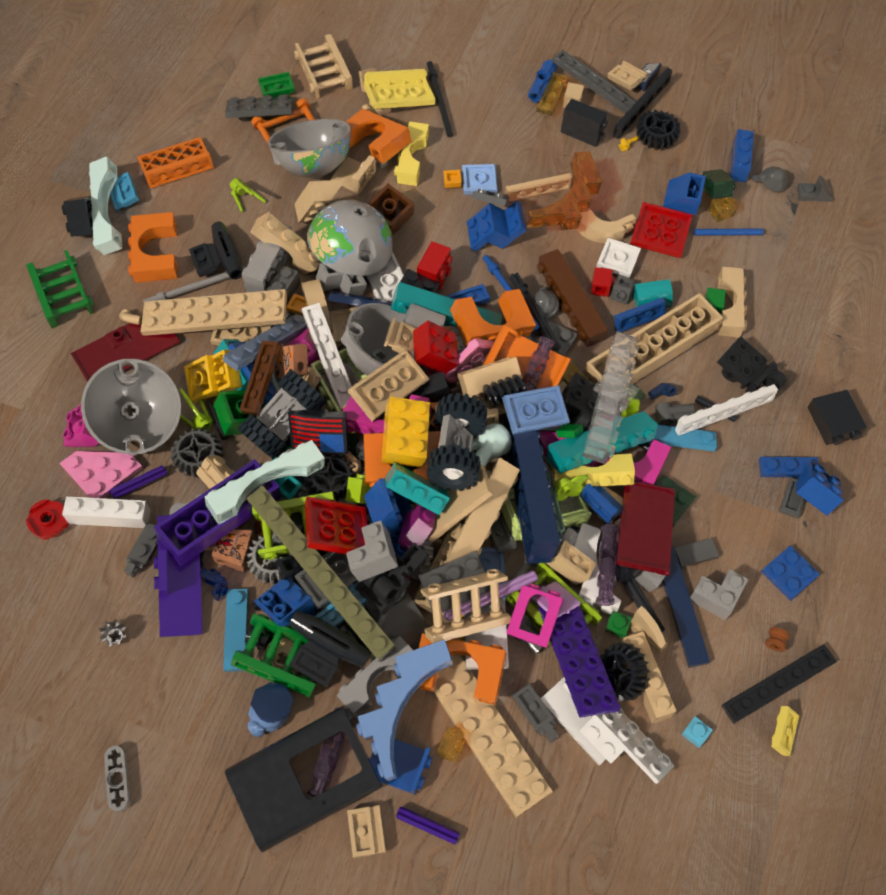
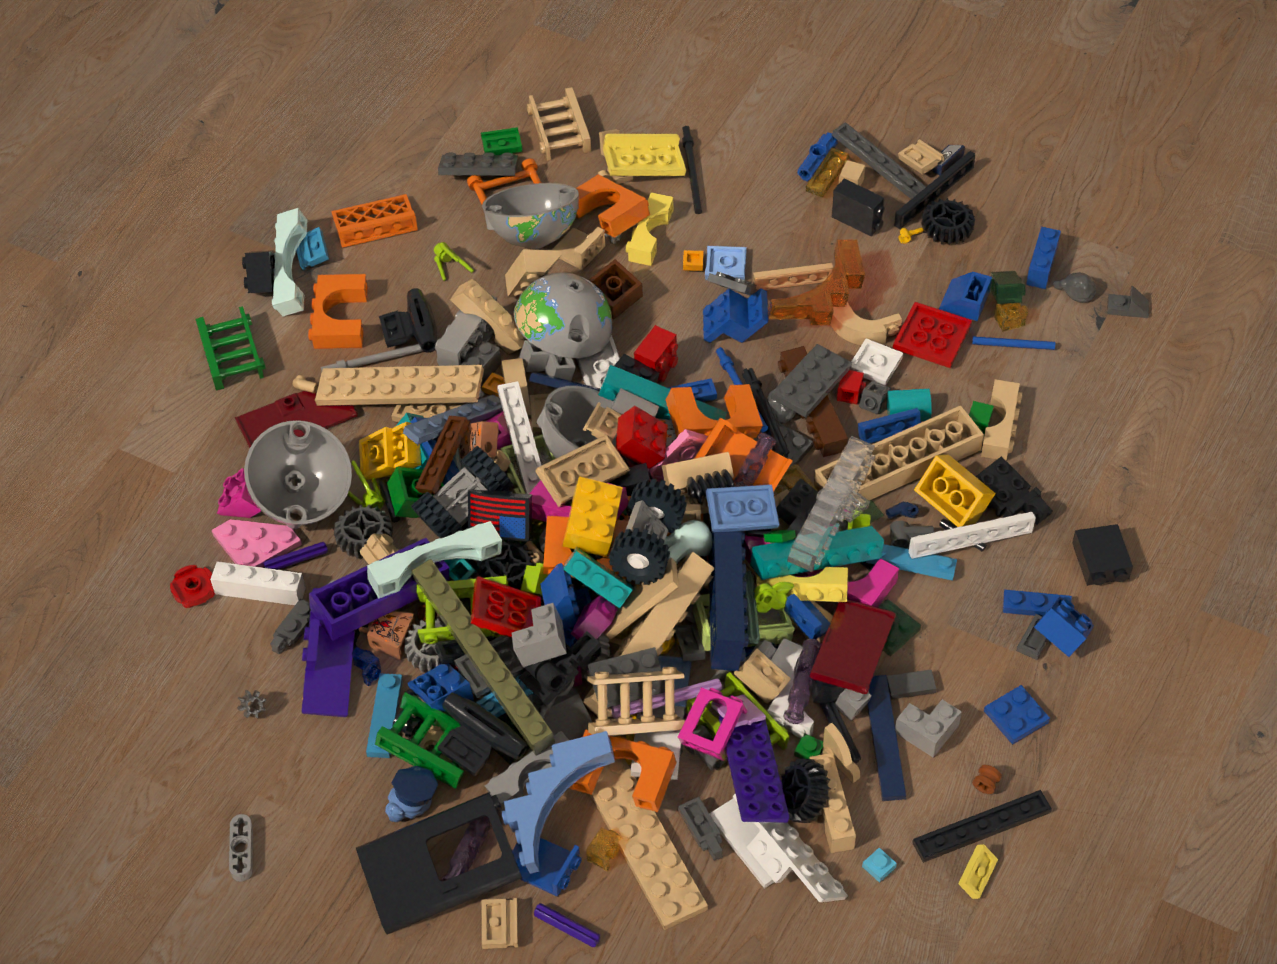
camera: 10 degrees right, 10 degrees down
(570, 280) = (811, 380): none -> dark grey plate
(707, 371) = (954, 491): none -> yellow brick

